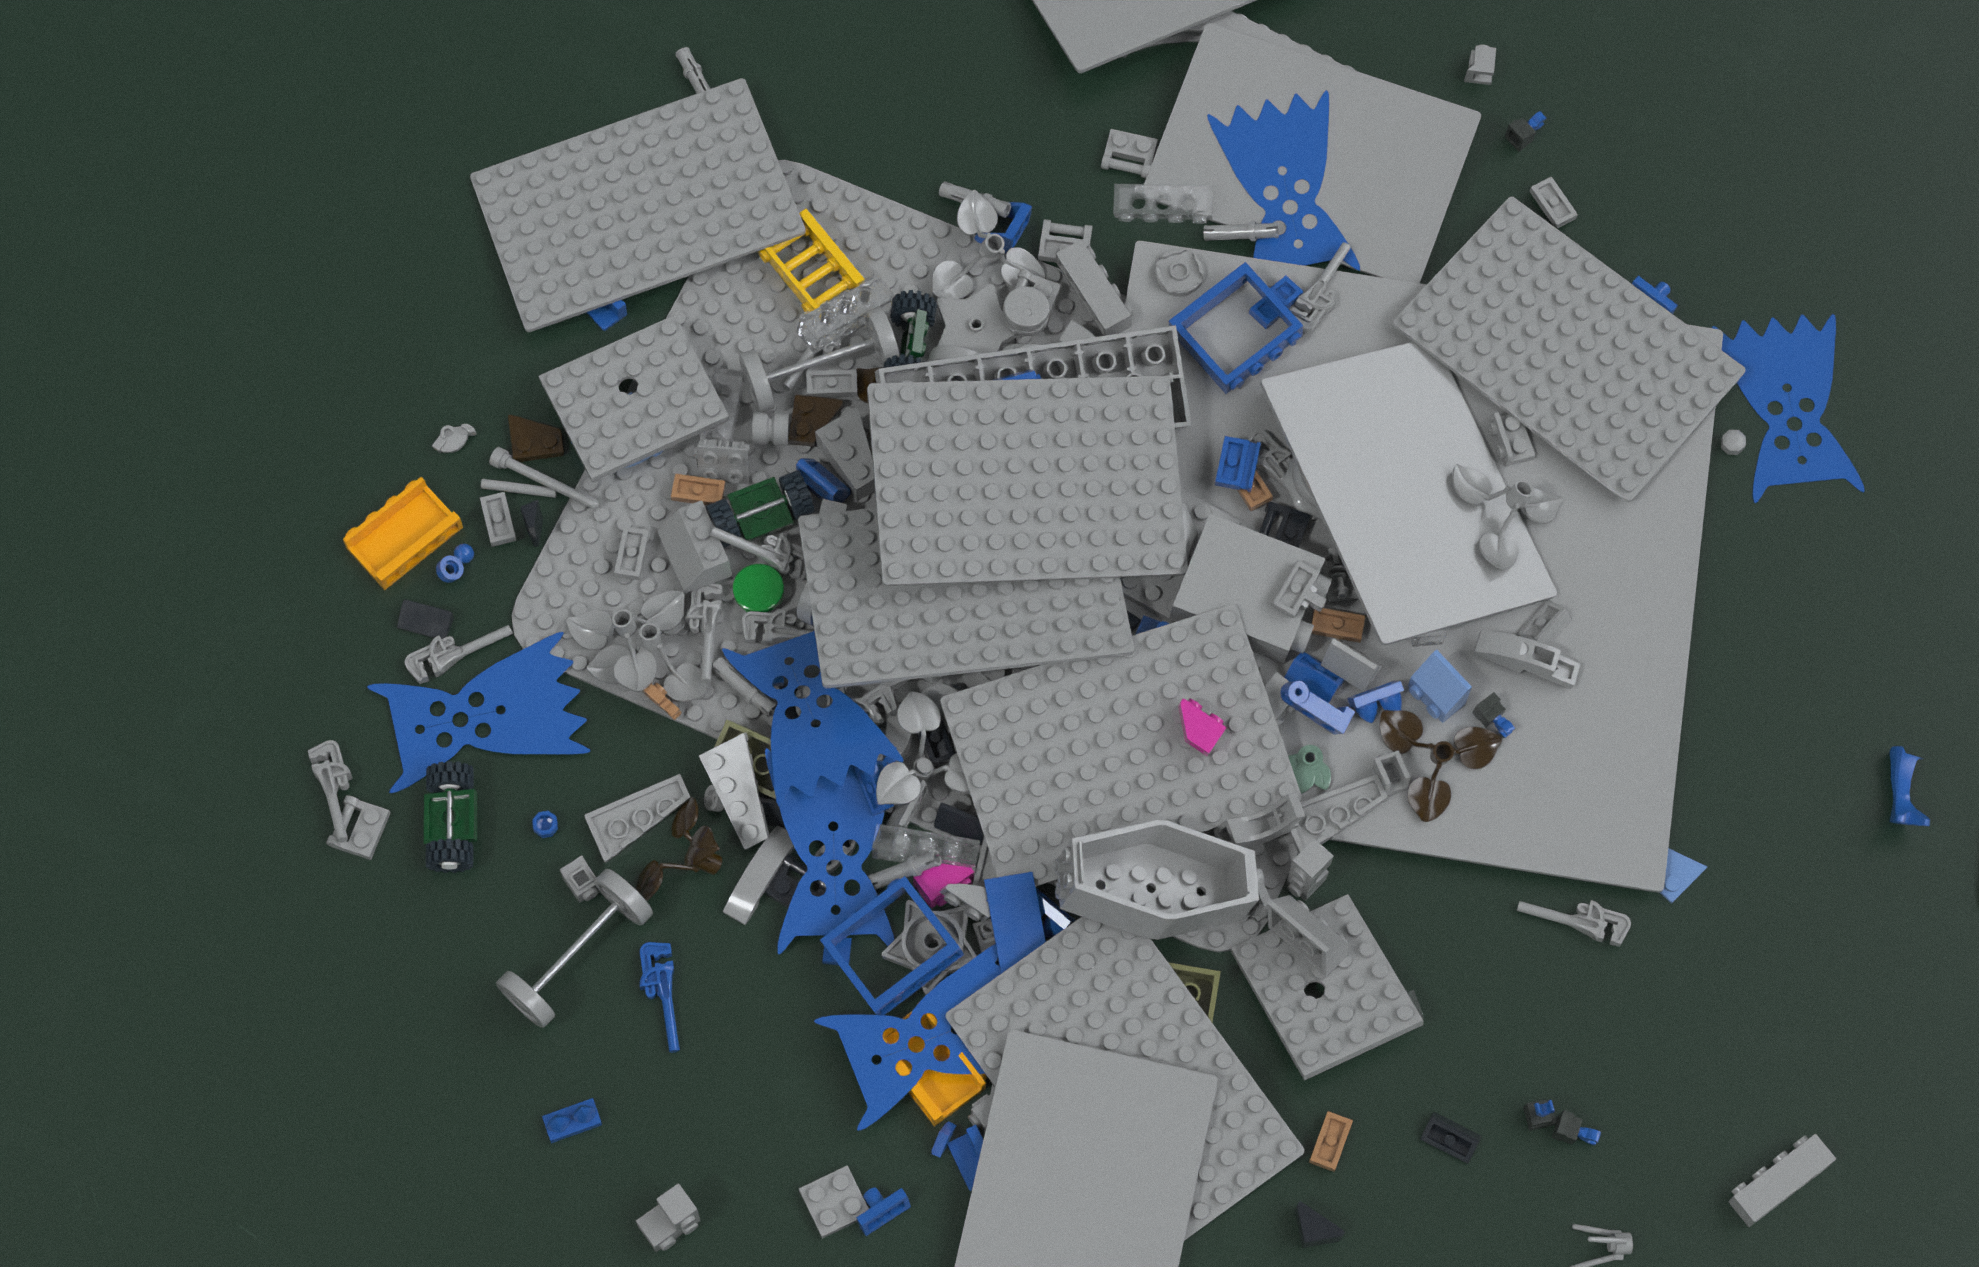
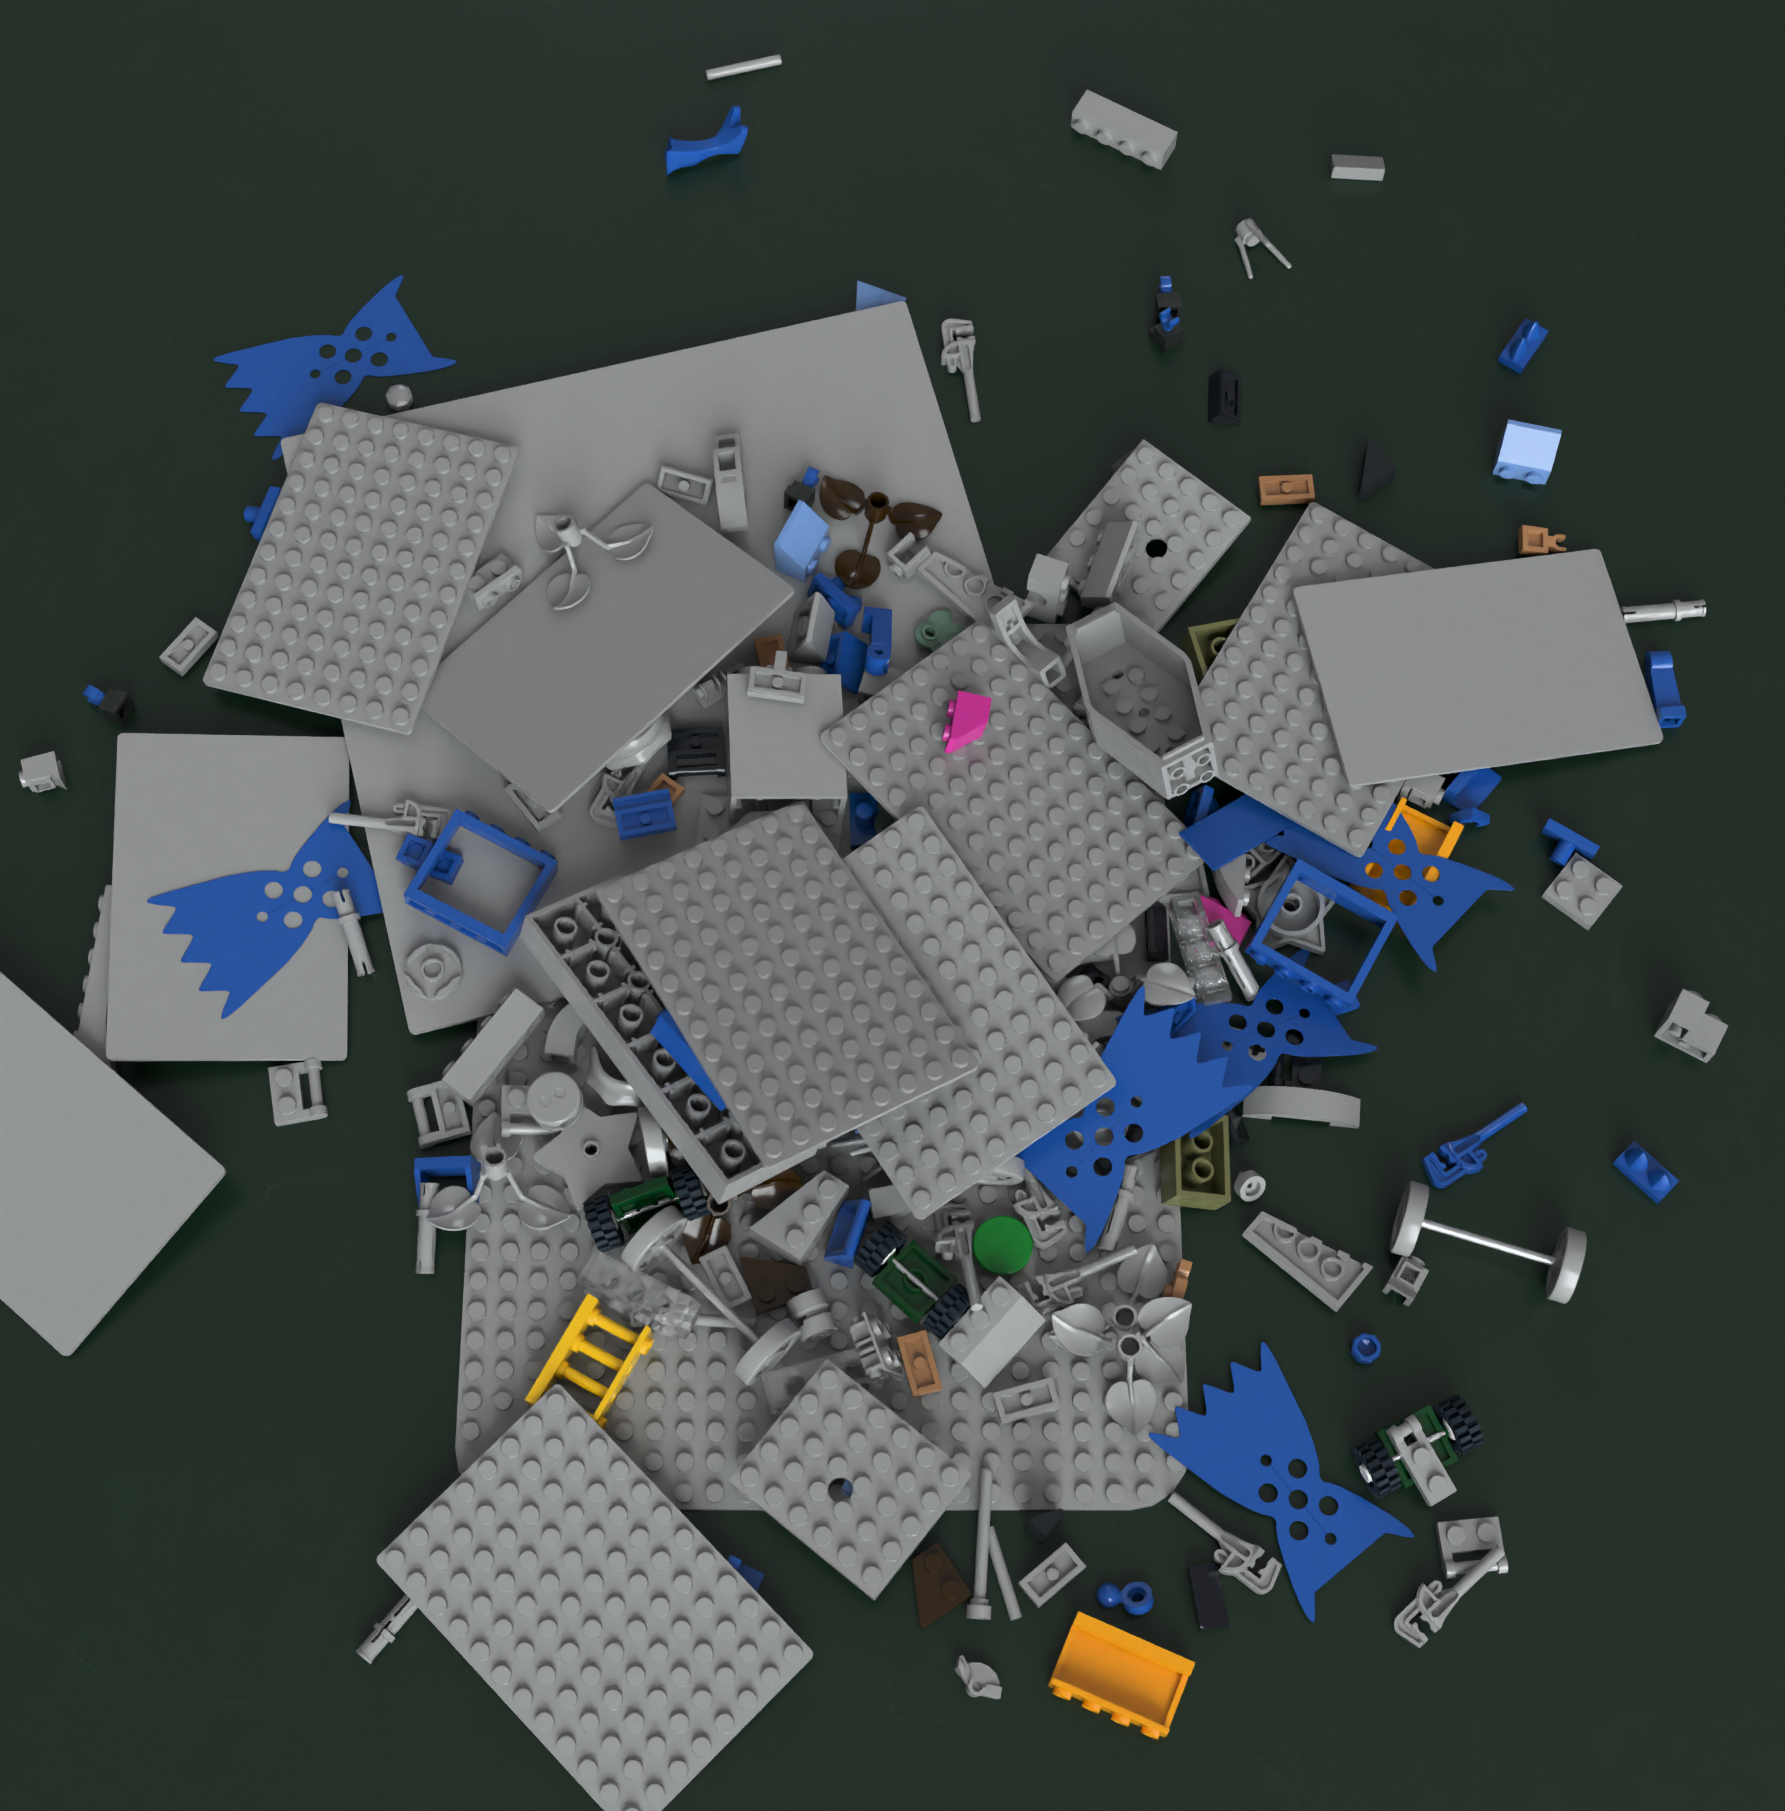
camera: 115 degrees left, 0 degrees up
(435, 811) = (1421, 1461): none -> light grey plate
(699, 855) = (1332, 1147): dark brown plant -> none
(735, 783) = (1235, 1159): light grey wing -> none
(1127, 193) = (356, 1067): clear brick -> none

